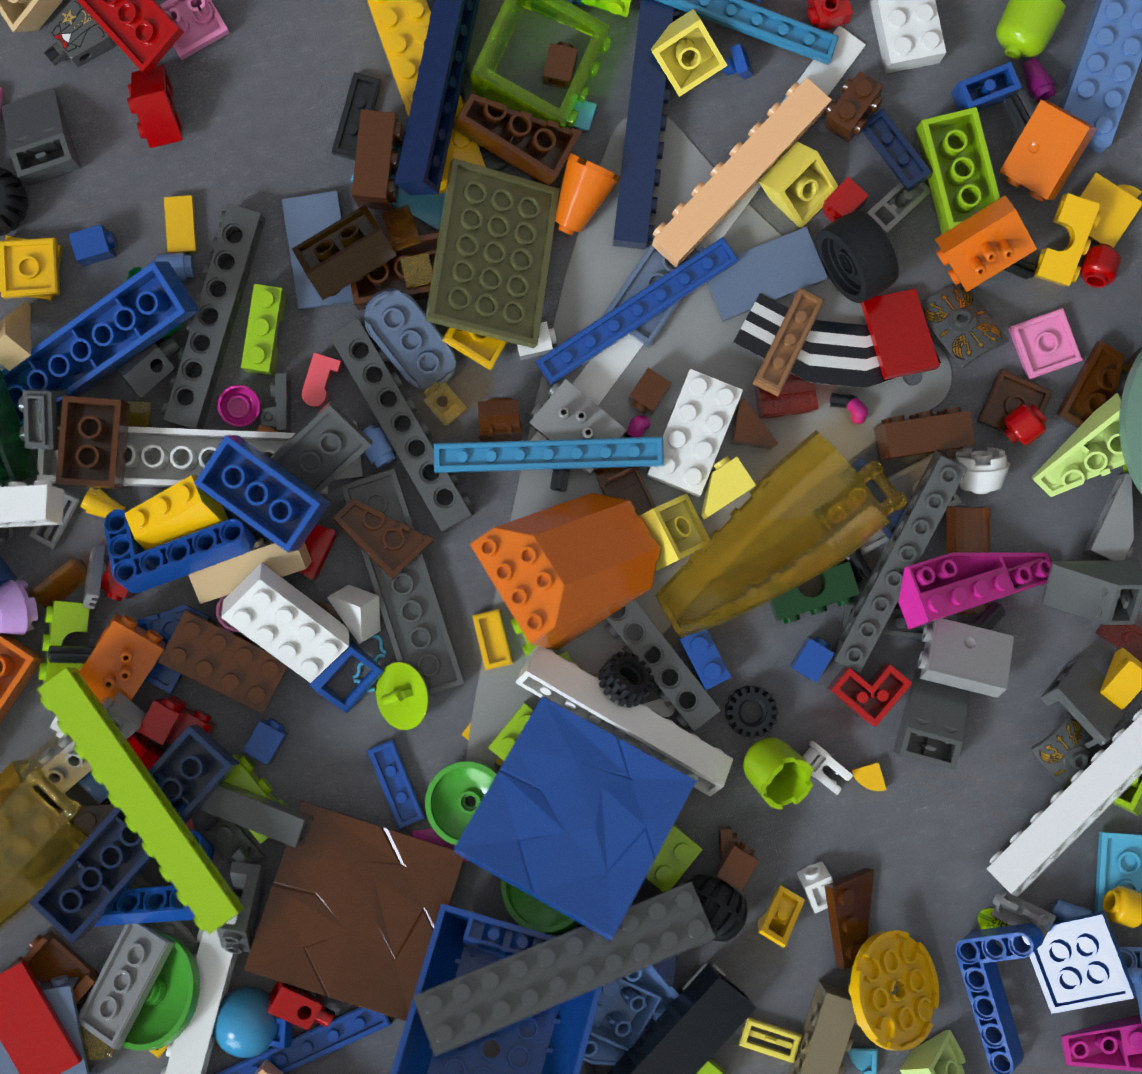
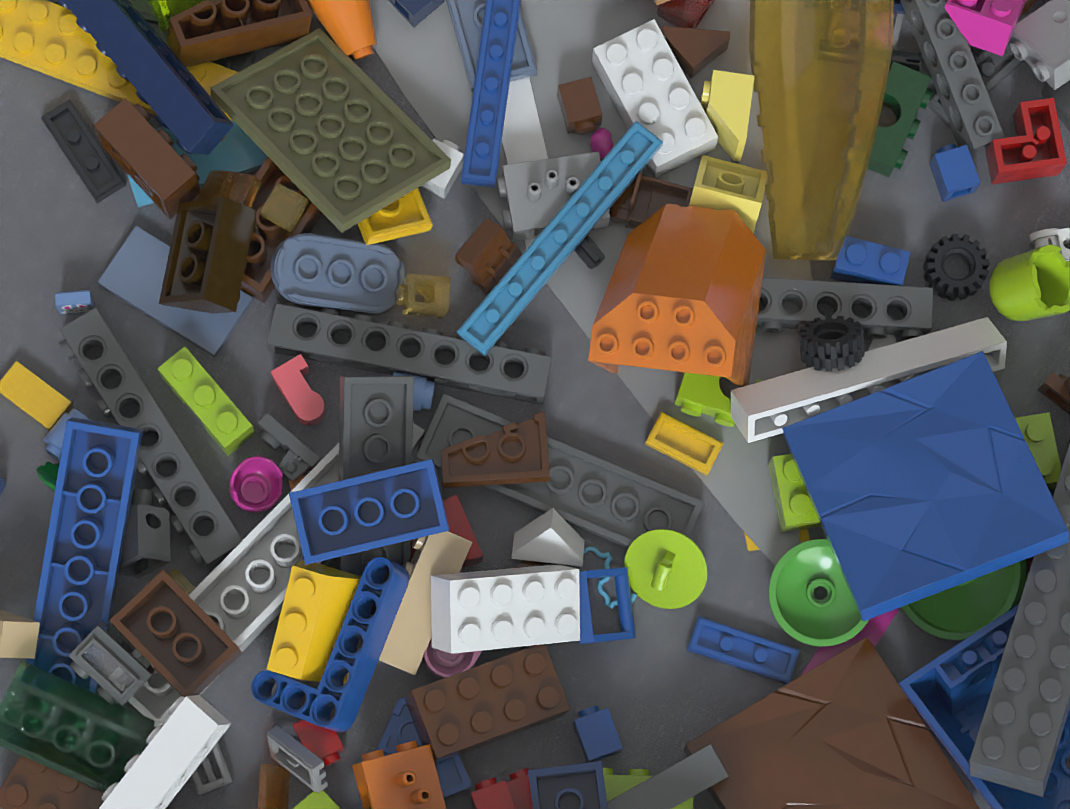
camera: 55 degrees left, 10 degrees down
(99, 503) = (230, 697): yellow cone -> none
(256, 196) = (74, 302): none -> medium blue tile

